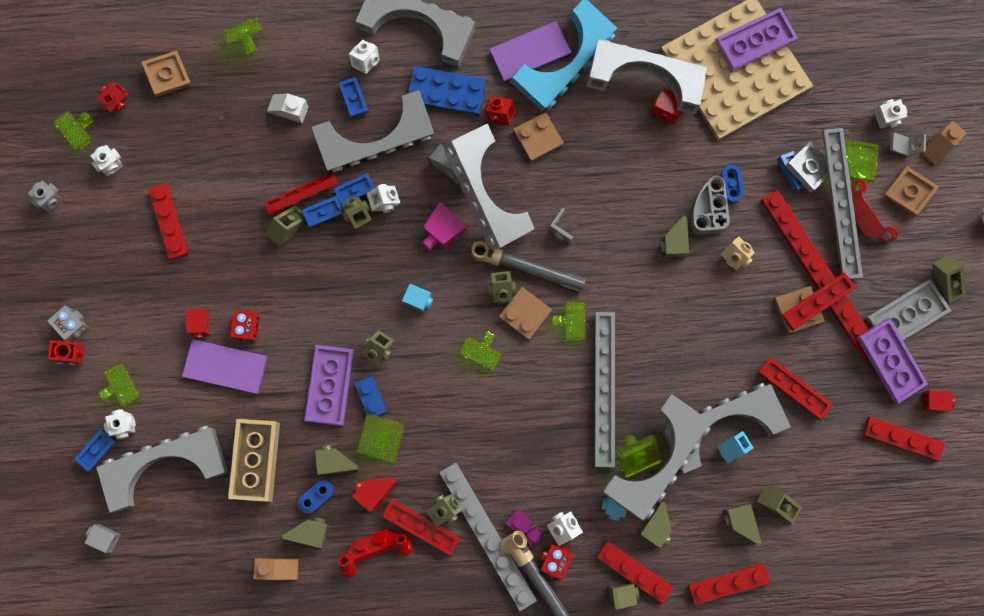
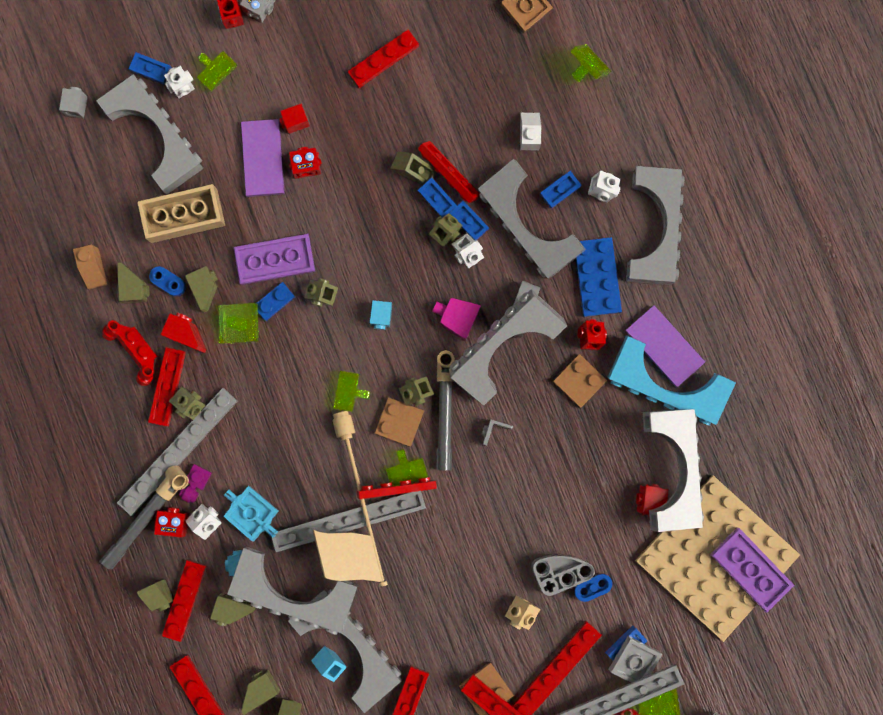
camera: 70 degrees right, 5 degrees up
(570, 480) = (251, 513): none -> medium azure plate
(586, 340) = (388, 489): none -> red plate
(638, 394) = (349, 554): none -> tan flag
(638, 454) = (293, 571): clear neon green tile -> none
(676, 242) = (516, 547): olive slope -> none

